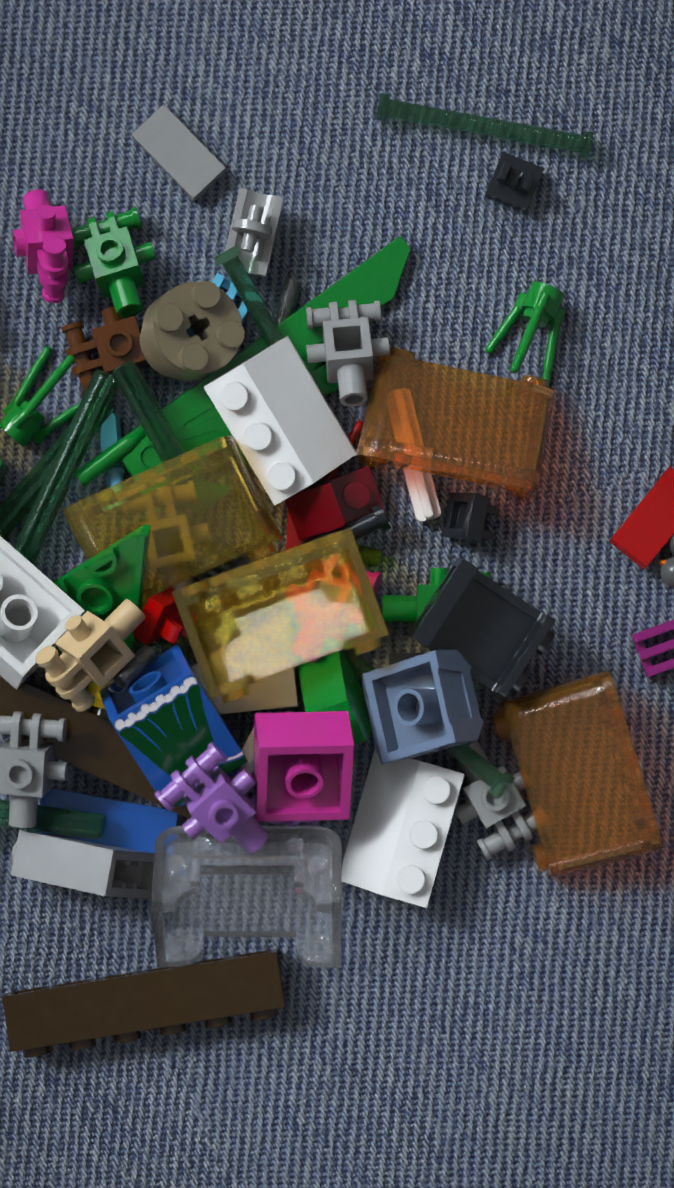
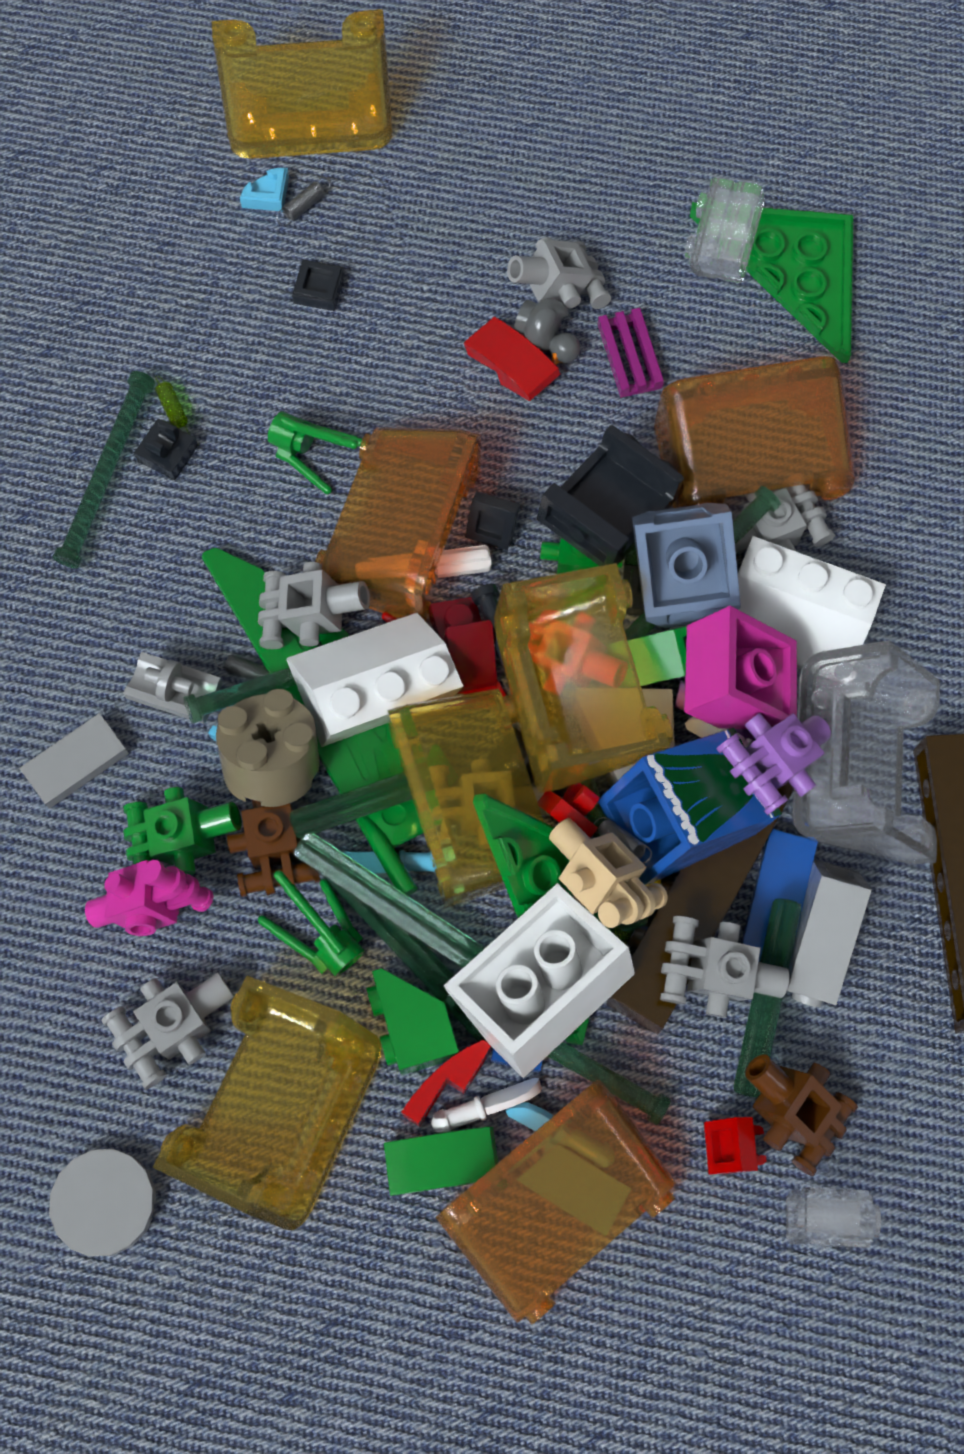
camera: 90 degrees left, 15 degrees down
(565, 179) = (171, 404): none -> clear neon green piece

